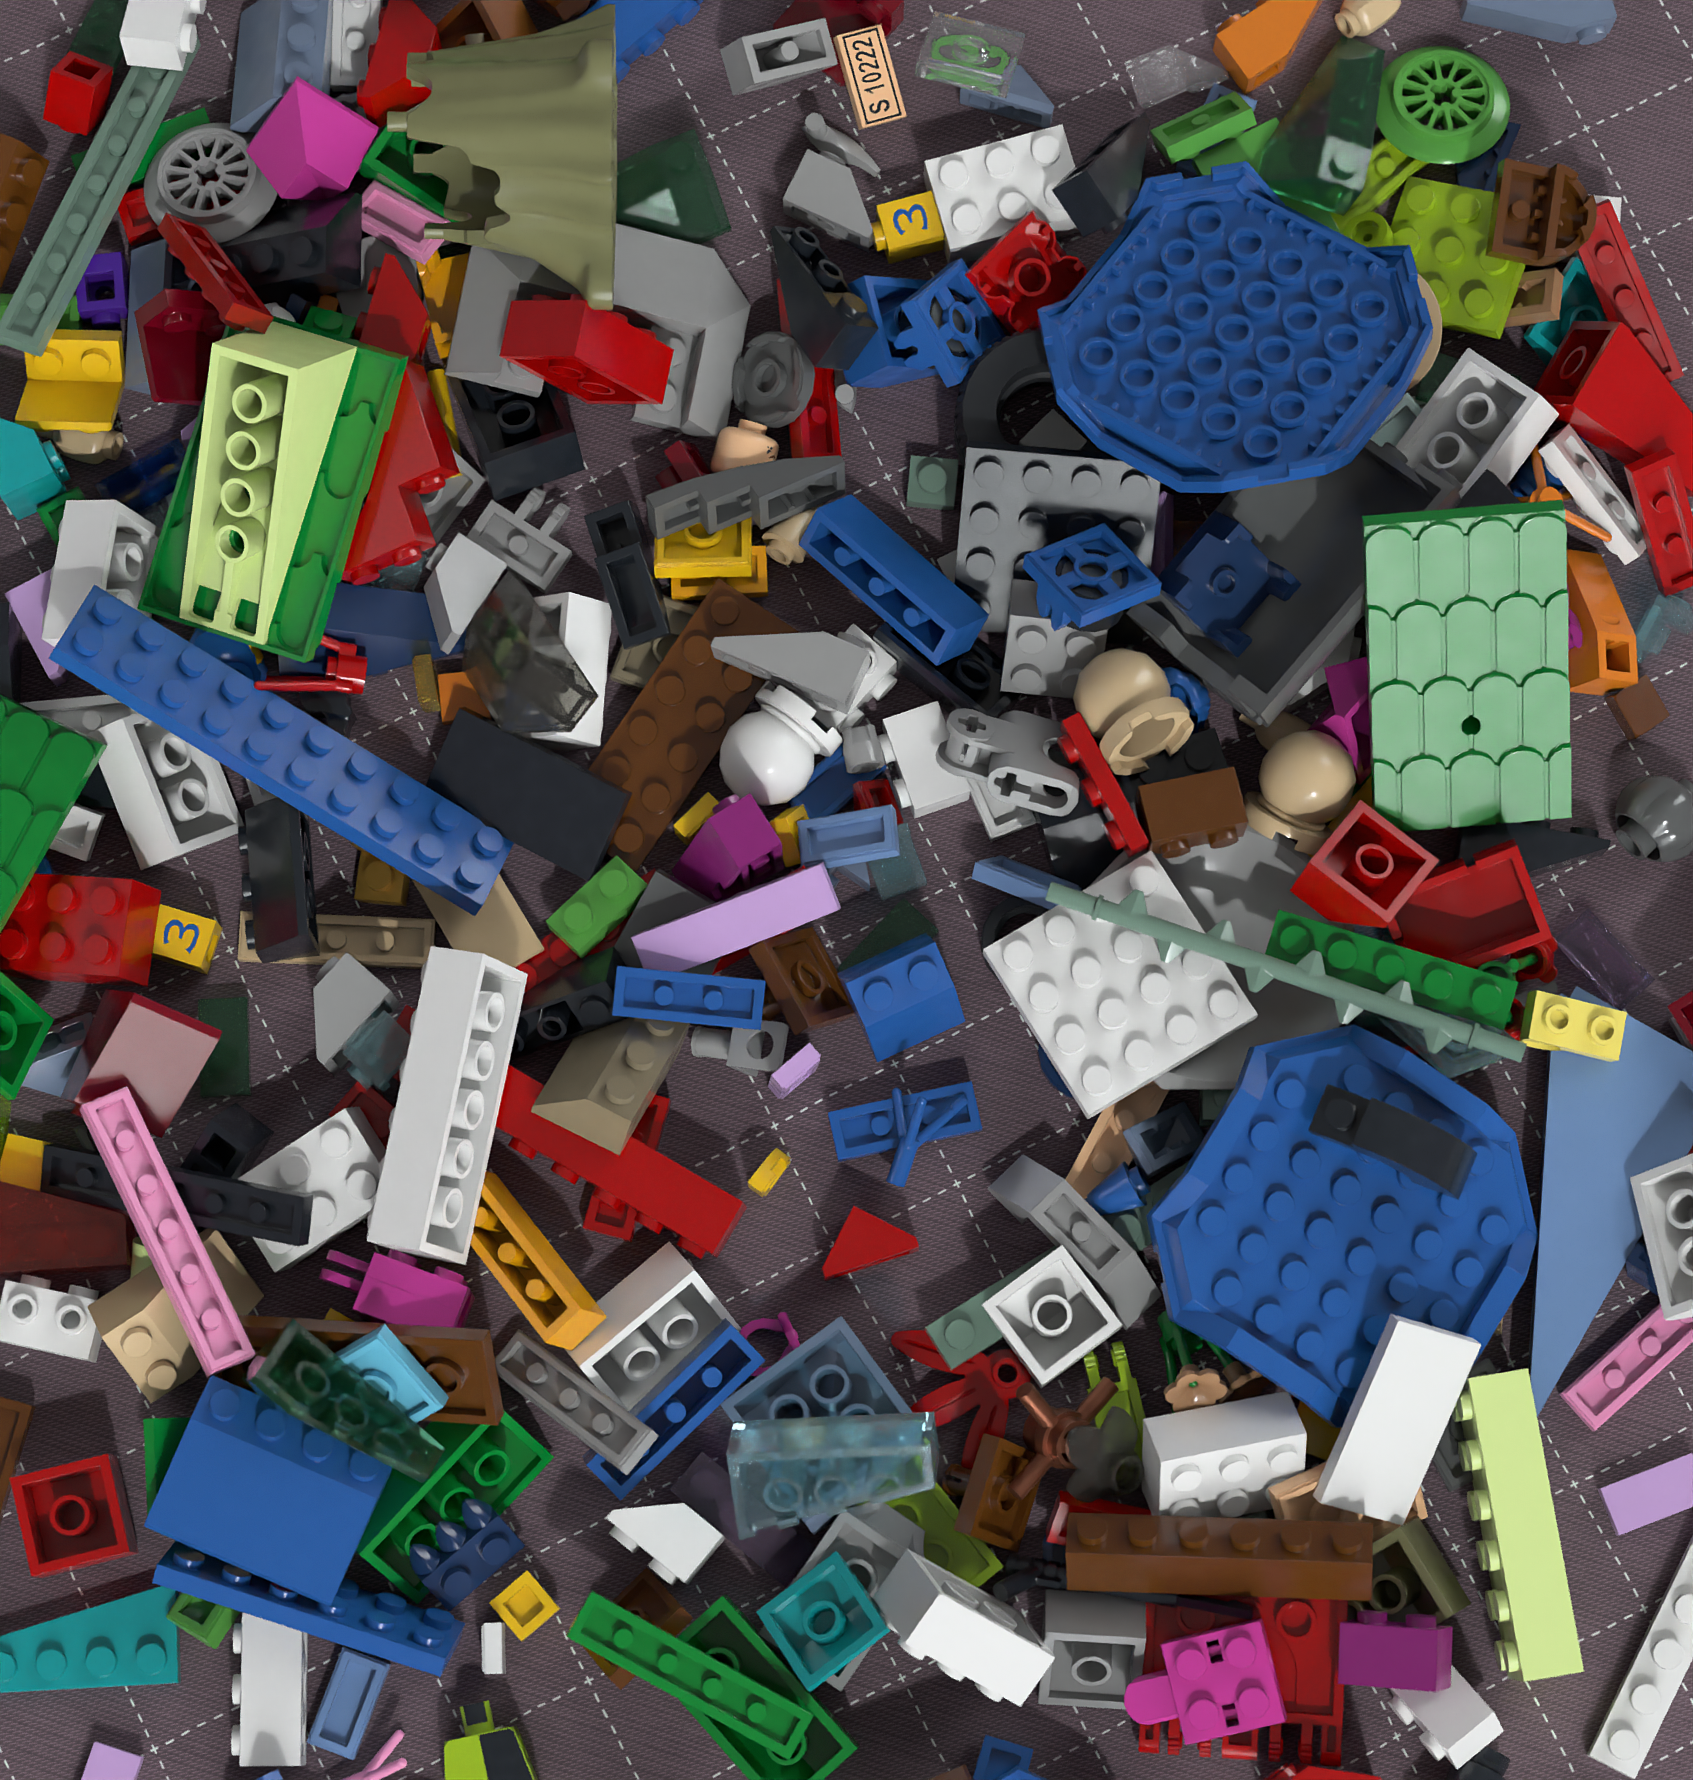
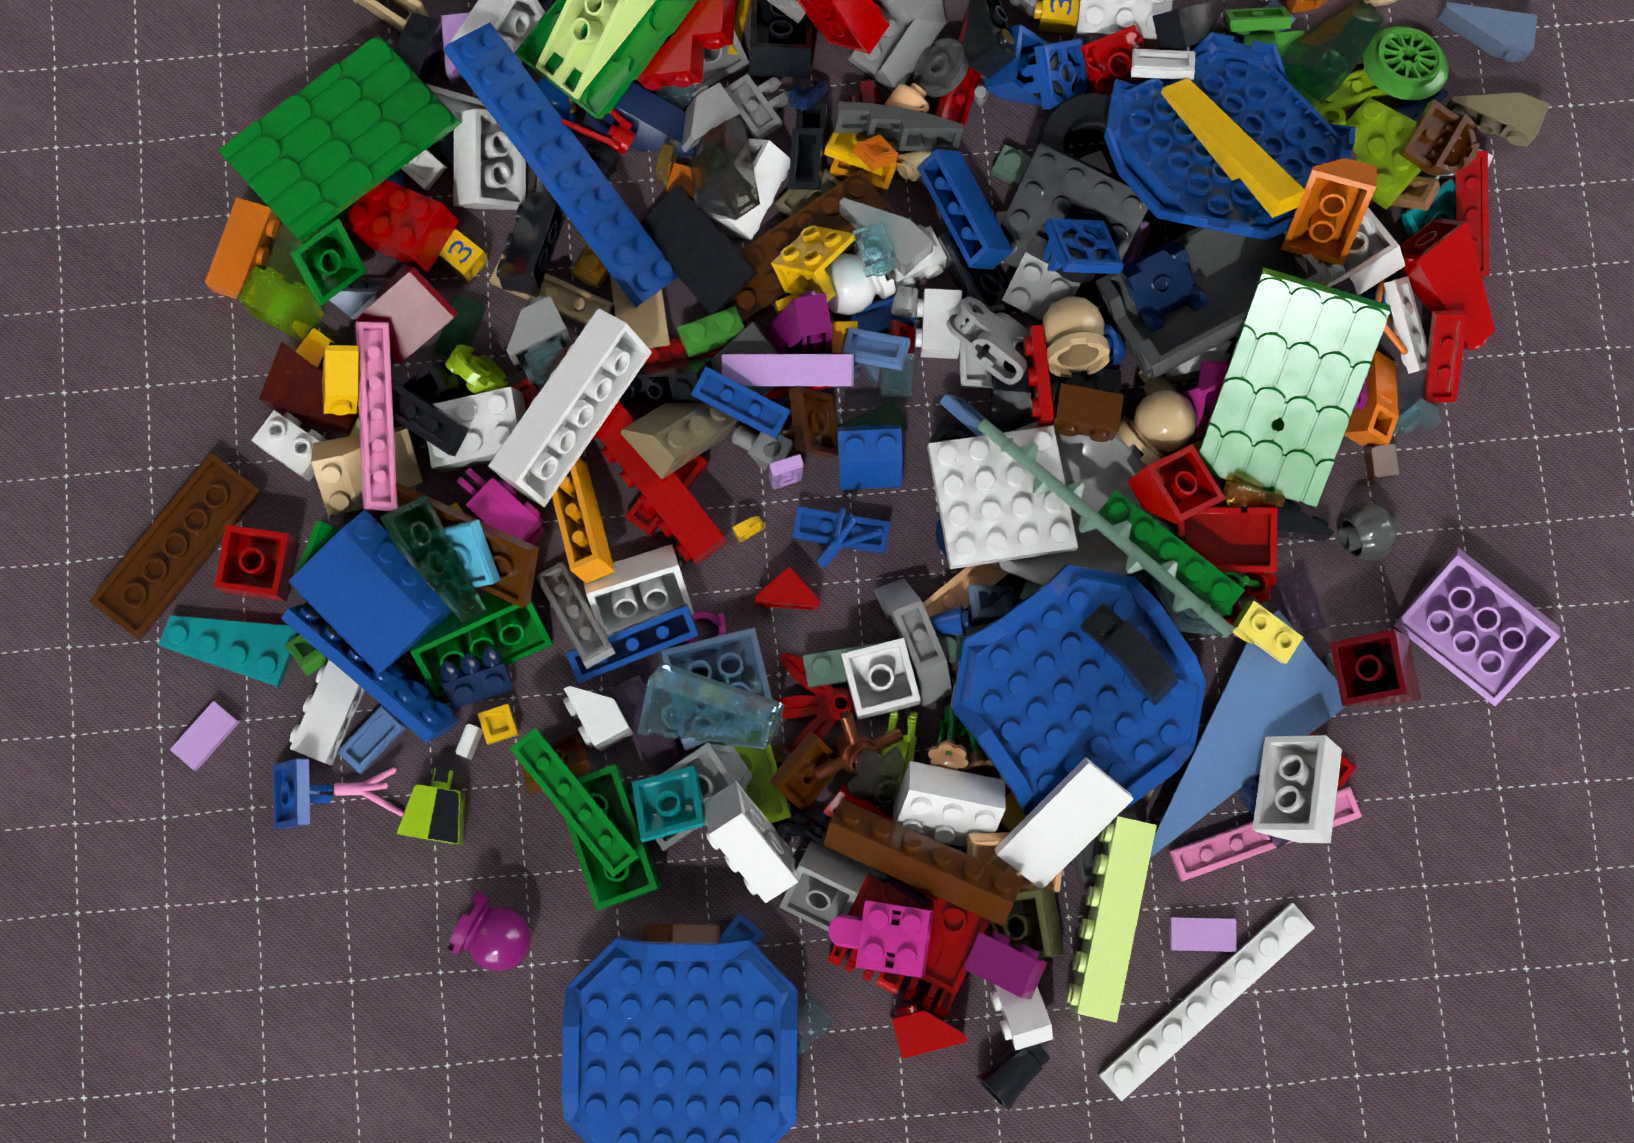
camera: 20 degrees right, 0 degrees up
(94, 1200) = (340, 379): none -> yellow slope
(284, 1102) = (480, 373): none -> lime plate
(594, 500) = (807, 97): none -> dark blue tile
(699, 744) = (803, 262): none -> yellow bracket
(731, 547) = (875, 152): none -> orange tile
(793, 698) = (875, 249): none -> clear light blue bracket
(1096, 255) = (1163, 64): none -> white tile
(1248, 349) = (1234, 149): none -> yellow slope
(1424, 387) = (1331, 210): none -> orange slope
(1461, 840) = (1243, 493): none -> clear orange cone
(1621, 125) = (1505, 114): none -> dark tan slope

